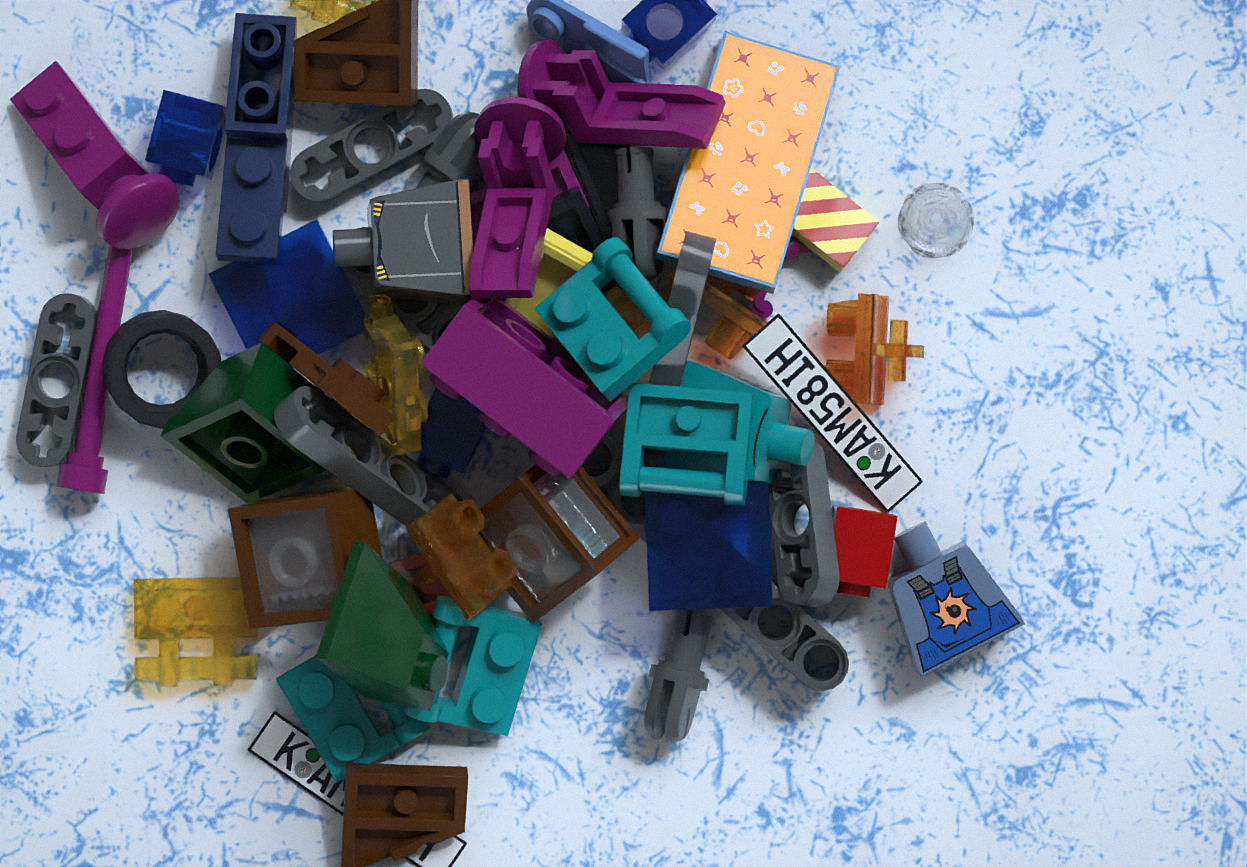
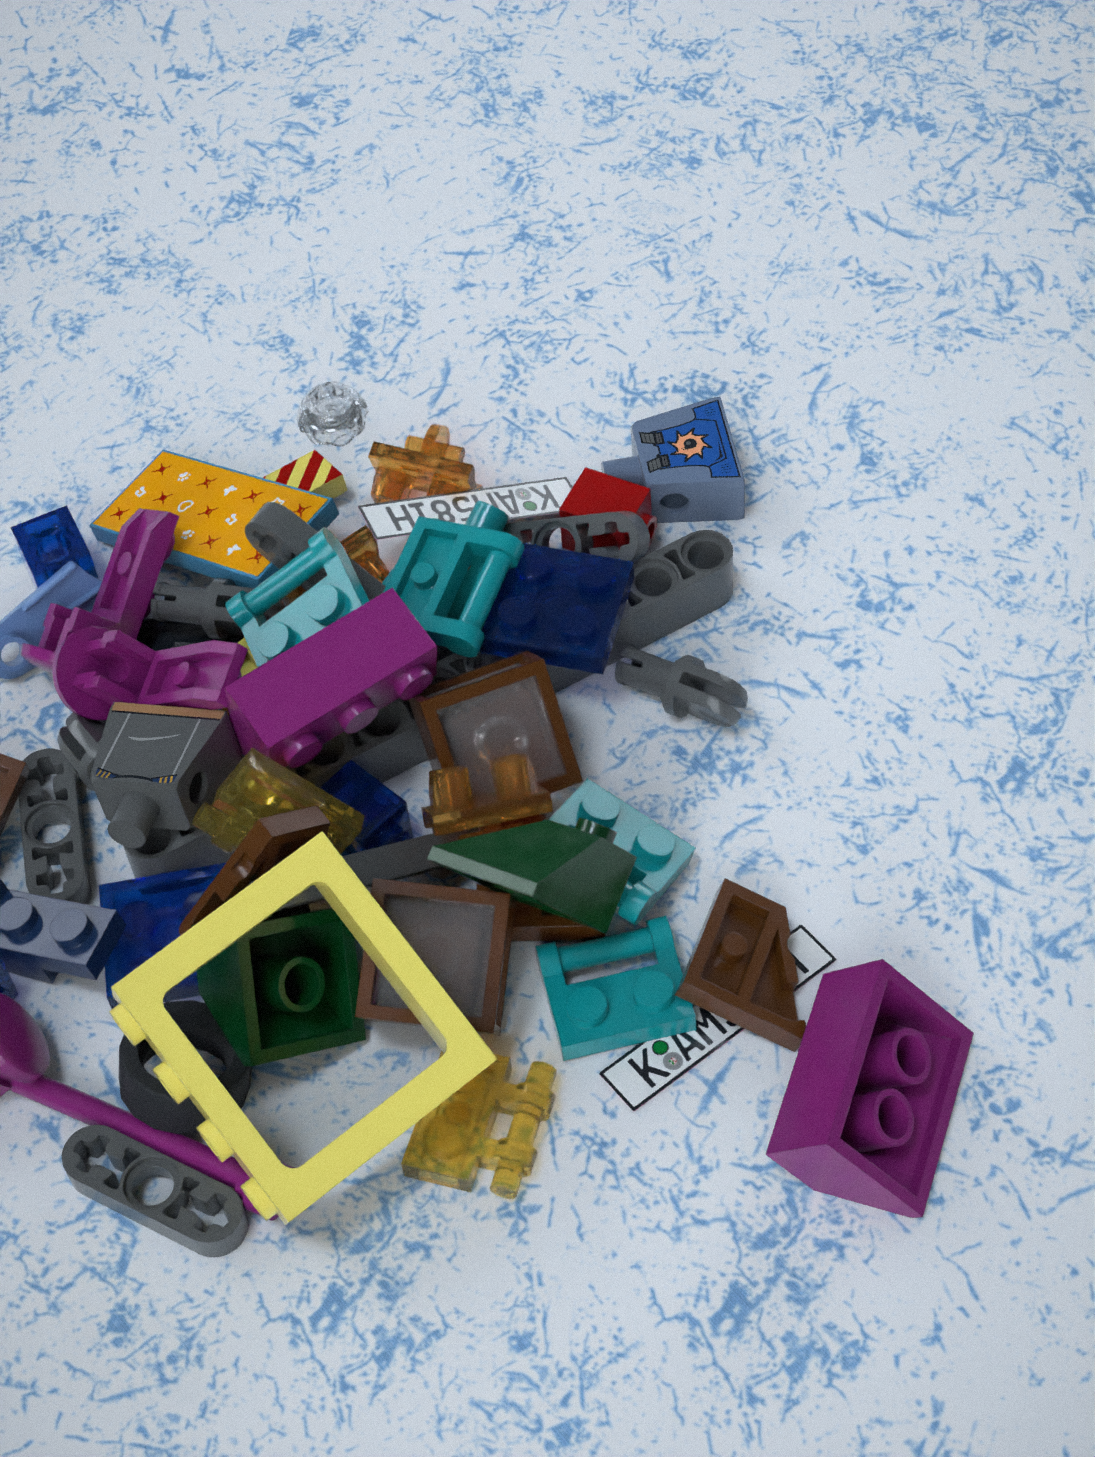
camera: 70 degrees left, 35 degrees down
(226, 405) = (185, 1074): none -> light yellow piece

